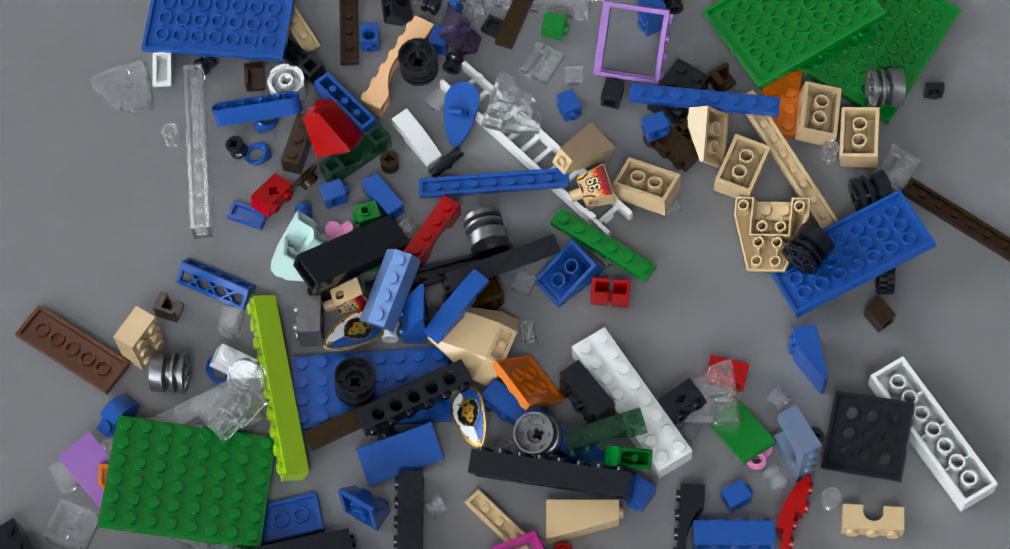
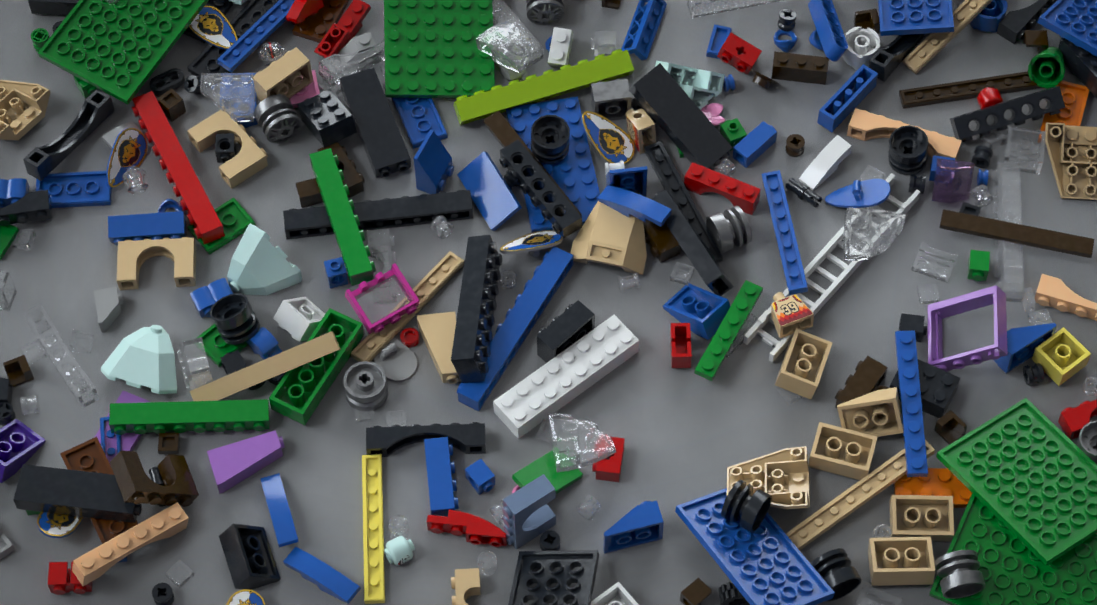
camera: 80 degrees right, 5 degrees down
(247, 374) = (543, 55): clear tile -> none
(330, 128) = (812, 82): red slope -> none
(334, 193) = (751, 103): blue brick -> none
(369, 30) = (931, 109): blue brick -> none
(372, 145) = (779, 102): clear green arch -> none
(390, 289) = (641, 153): medium blue slope -> none
(527, 382) = (571, 279): orange plate -> none
(528, 429) = (513, 289): flat silver wheel -> none
(568, 105) = (888, 290): blue brick -> none
(584, 150) = (832, 301): tan slope -> none
(623, 425) = (527, 352): clear green arch -> none
(628, 457) = (499, 368): green brick -> none
(655, 126) = (870, 361): blue brick -> none
(673, 401) = (566, 411): black brick -> none

